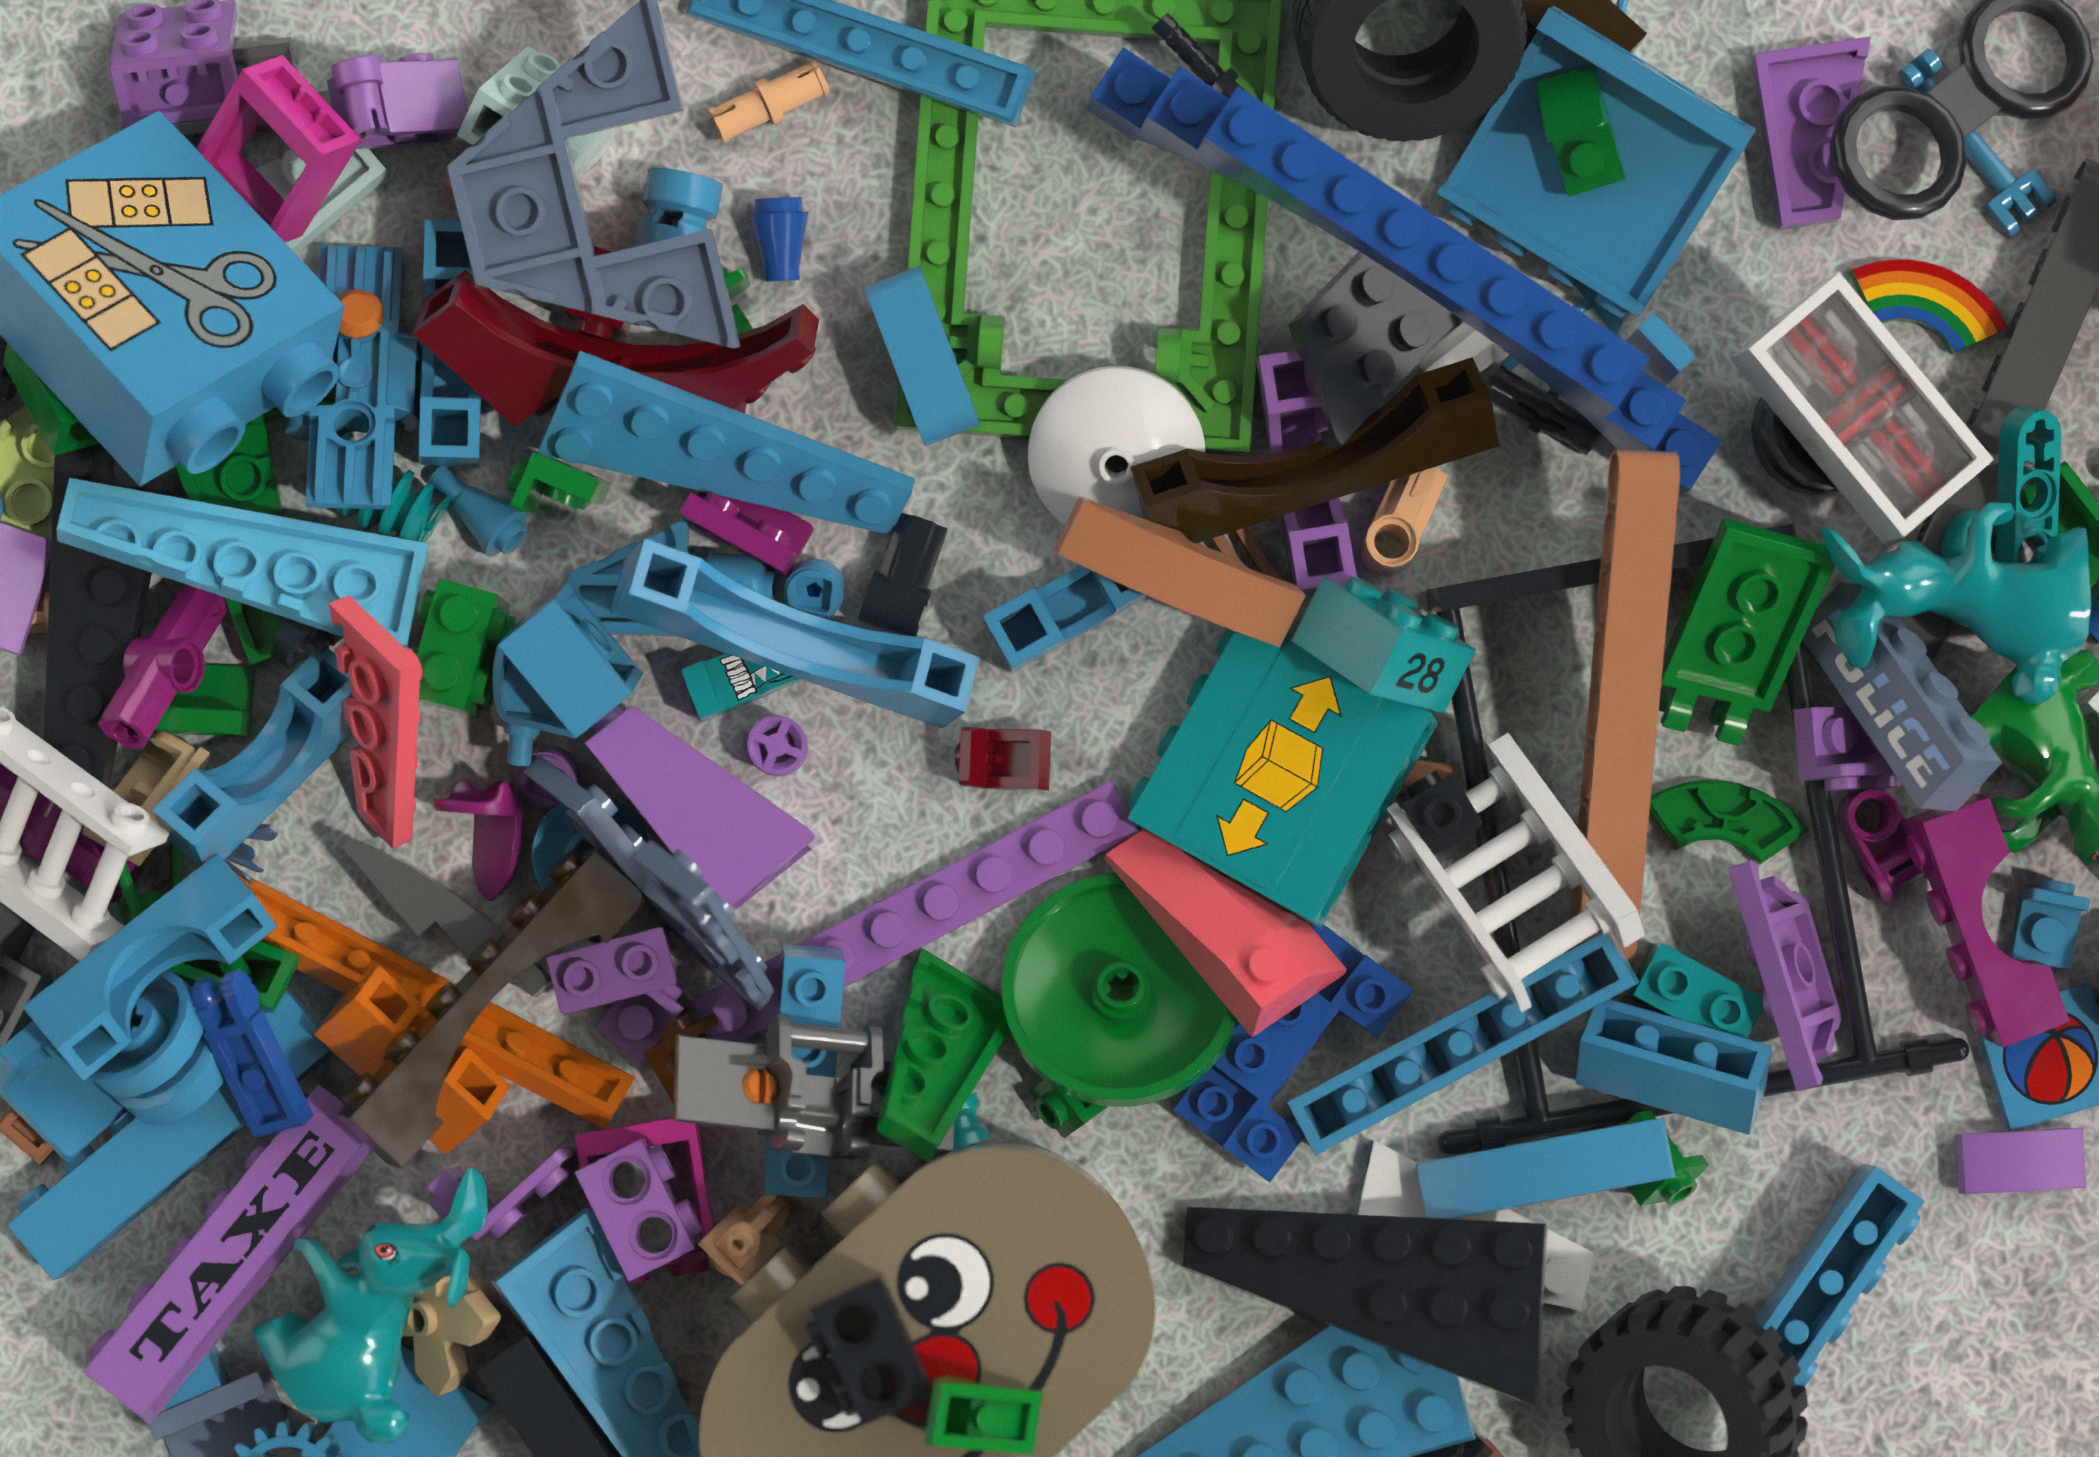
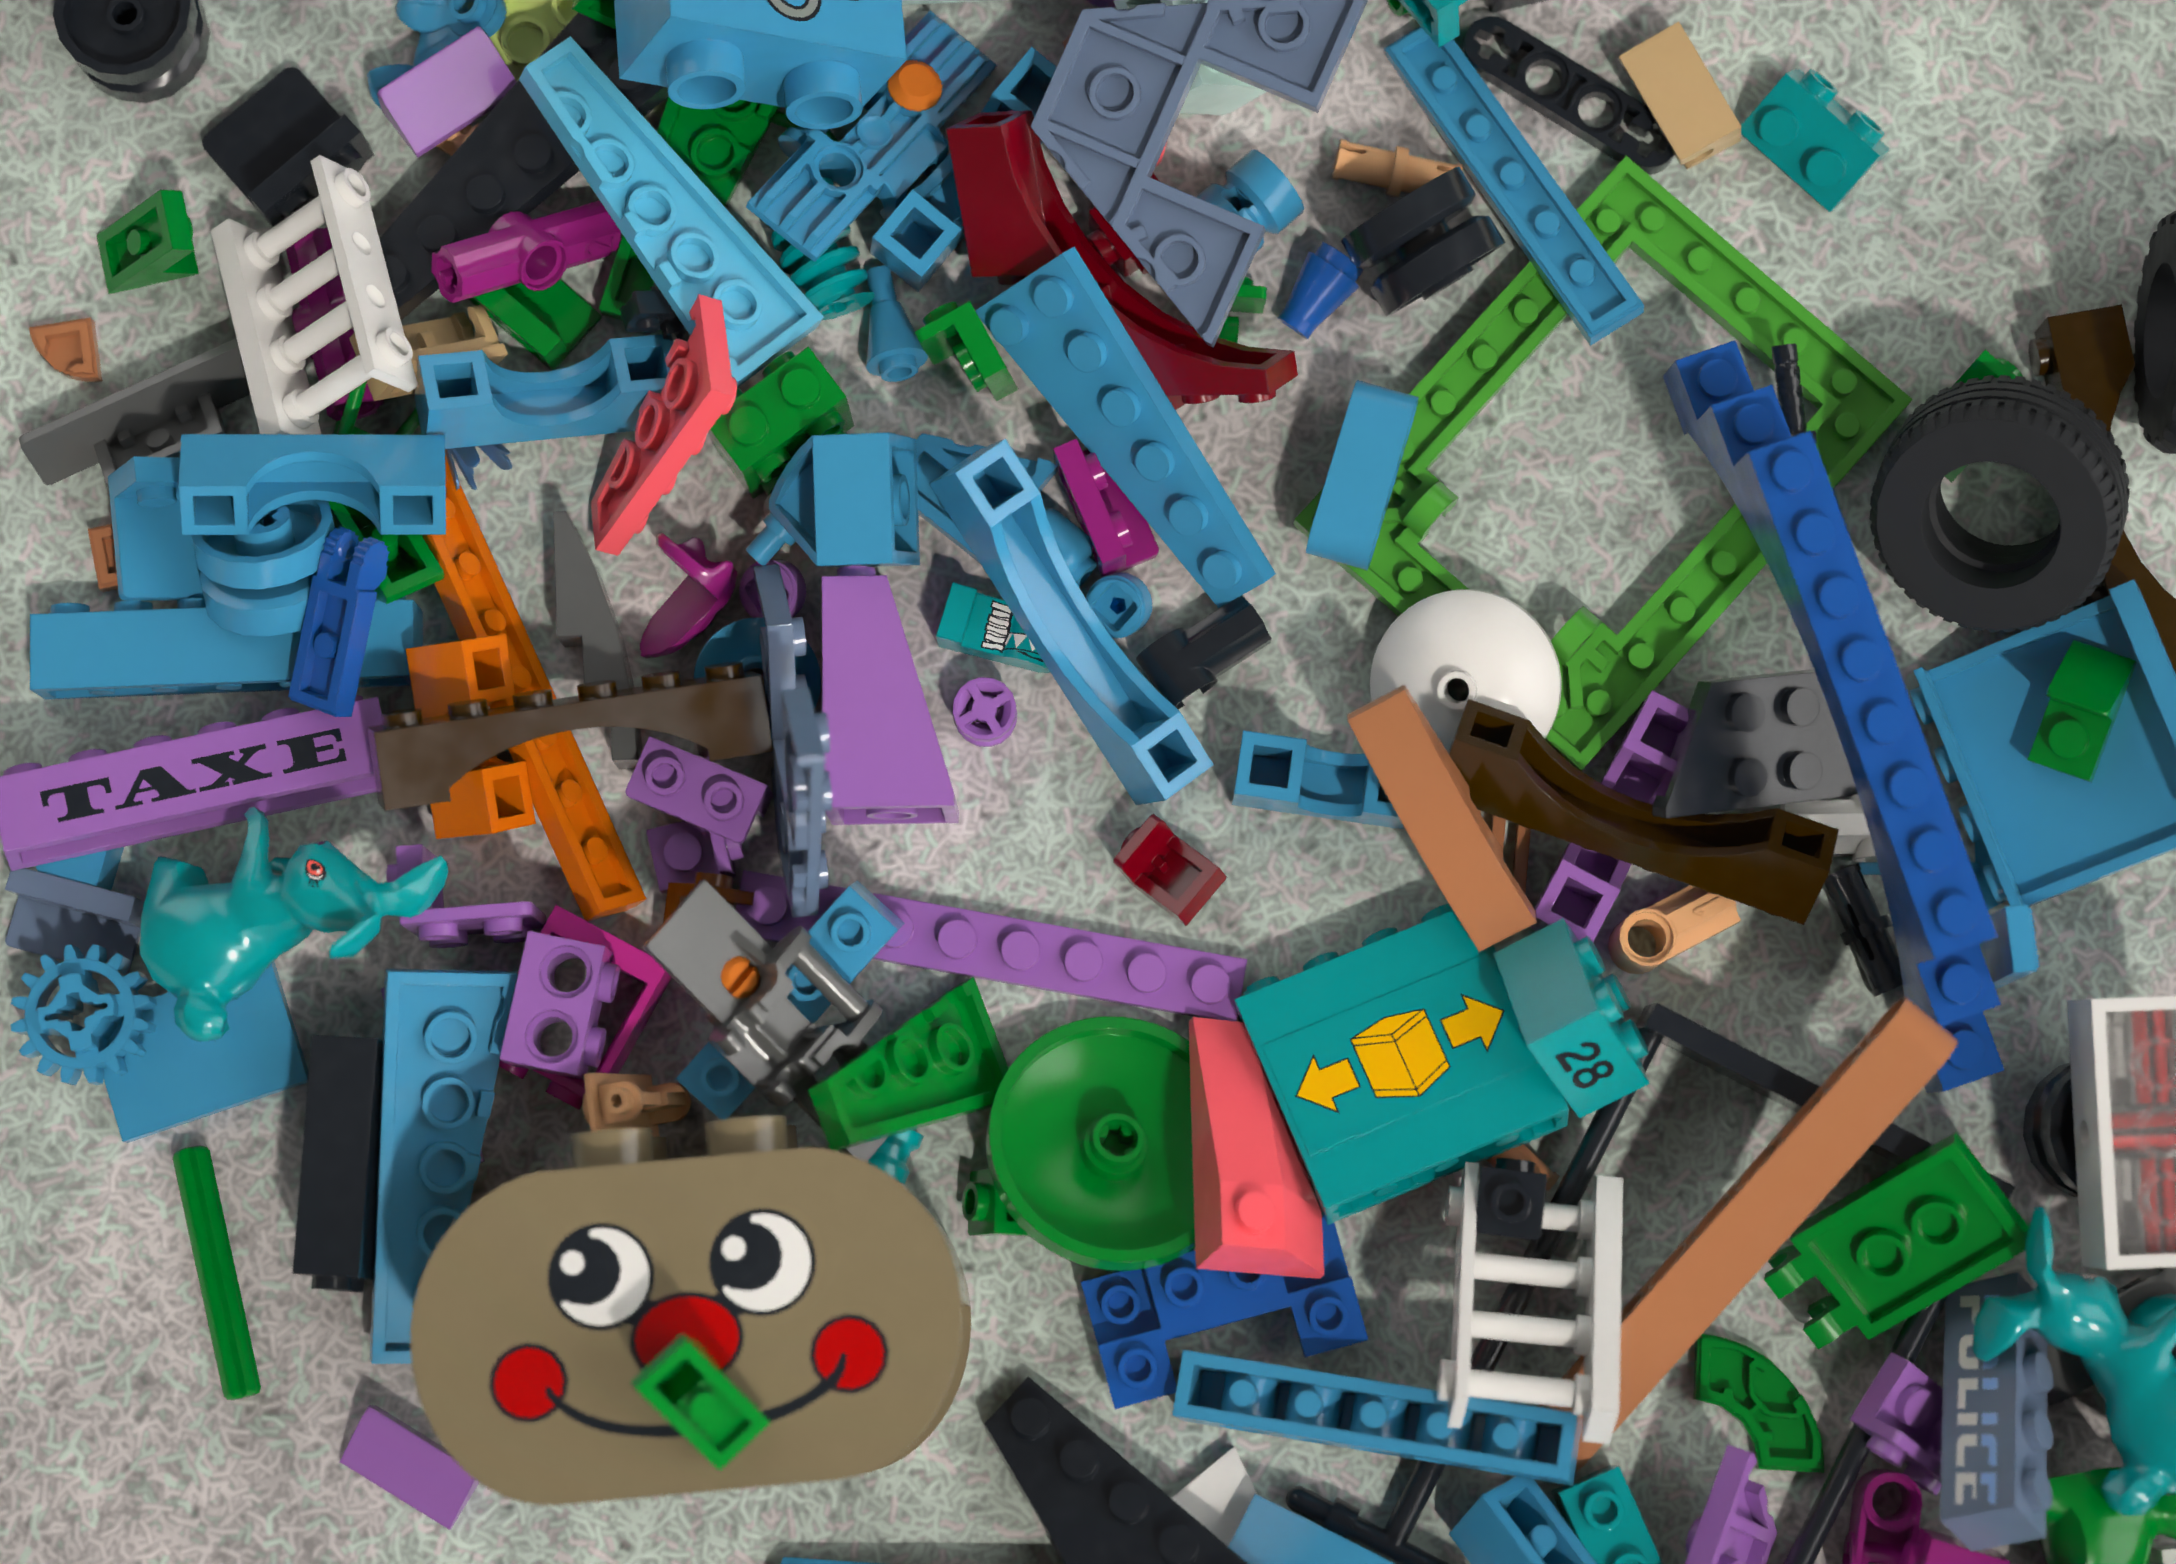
camera: 45 degrees right, 5 degrees down
(443, 1331) = (320, 983): tan plant -> none
(835, 145) = (1426, 247): none -> black wheel
(885, 1344) = (668, 1272): black brick -> none

